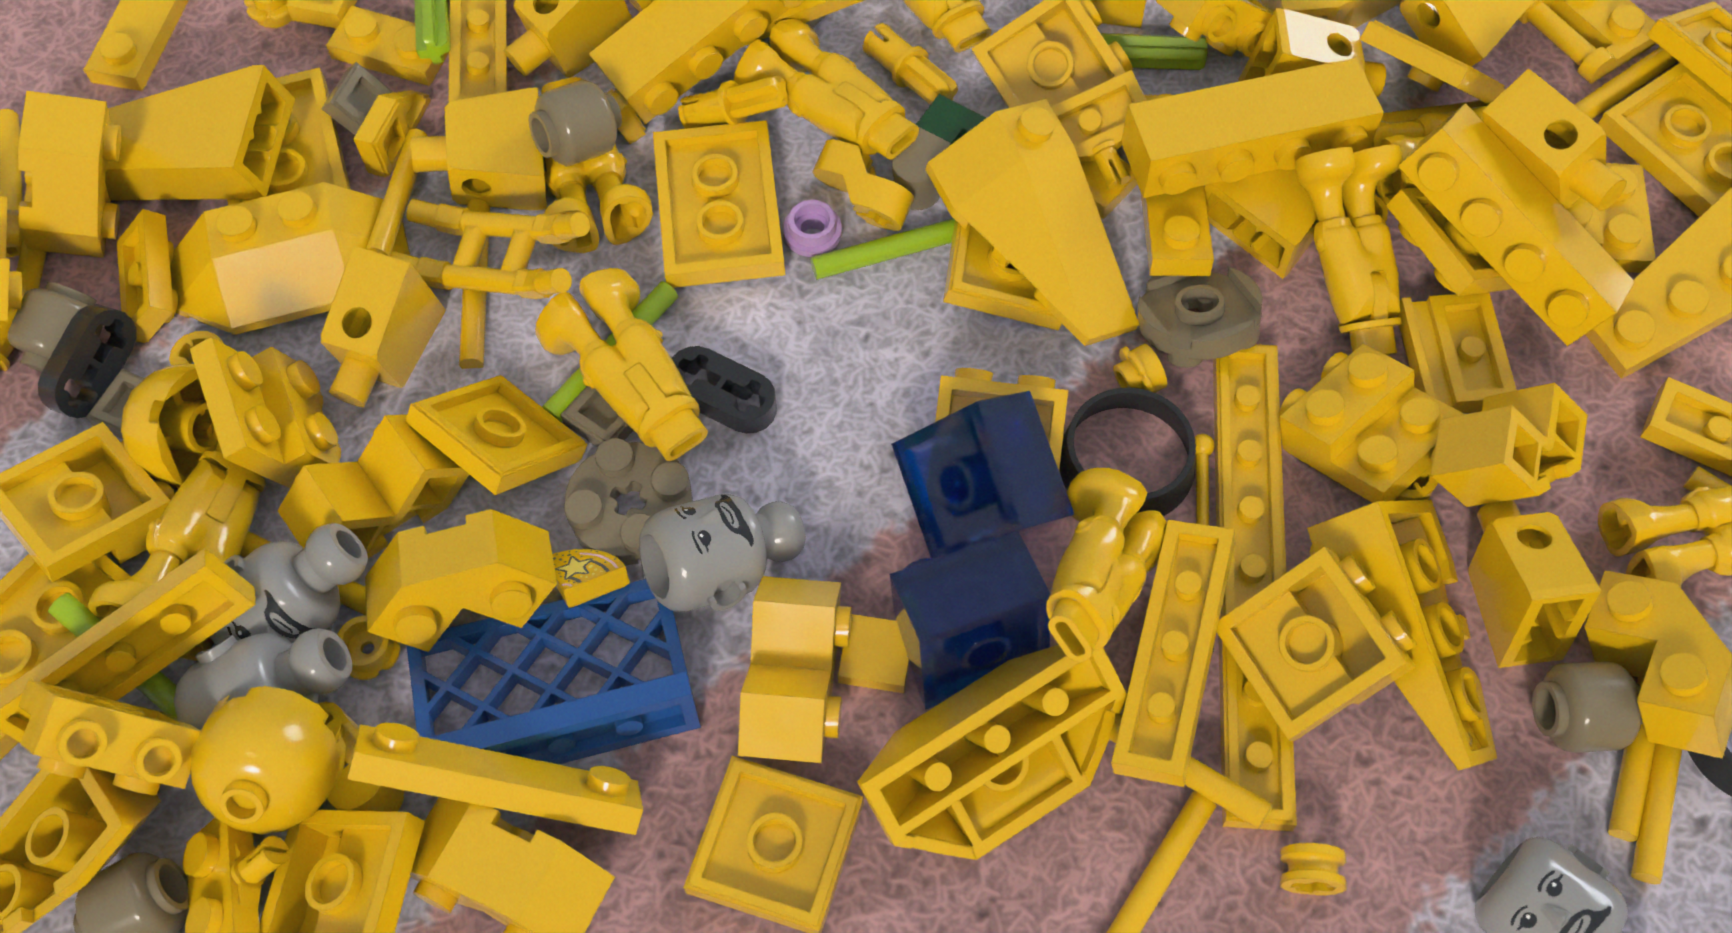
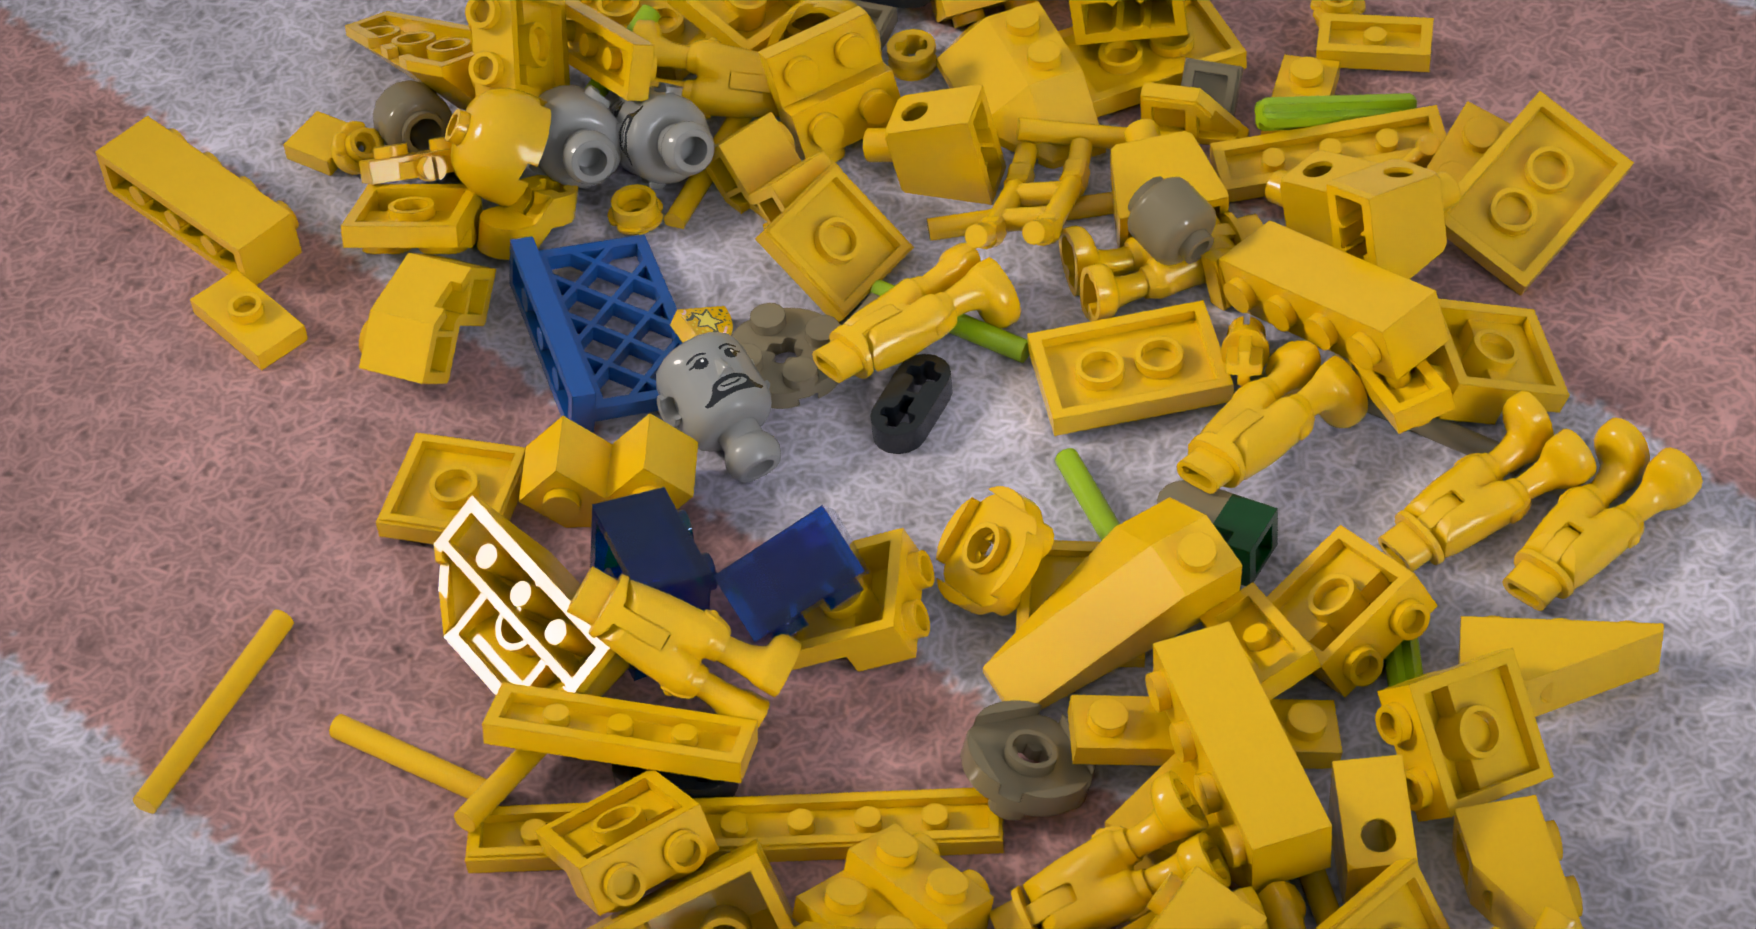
camera: 90 degrees right, 15 degrees down
(404, 760) = (492, 287): yellow plate -> none
(482, 566) = (689, 247): yellow brick -> none
(810, 215) = (1110, 445): lavender plate -> none
(873, 197) = (1148, 470): yellow piece -> none
(908, 65) = (1340, 499): yellow axle -> none
(966, 277) = (997, 580): none -> yellow plate
(1140, 369) = (951, 719): yellow plate -> none
(1164, 499) = (866, 766): black tyre -> none
(1204, 447) = (771, 787): yellow hinge -> none
(1313, 869) = (419, 868): yellow bush -> none

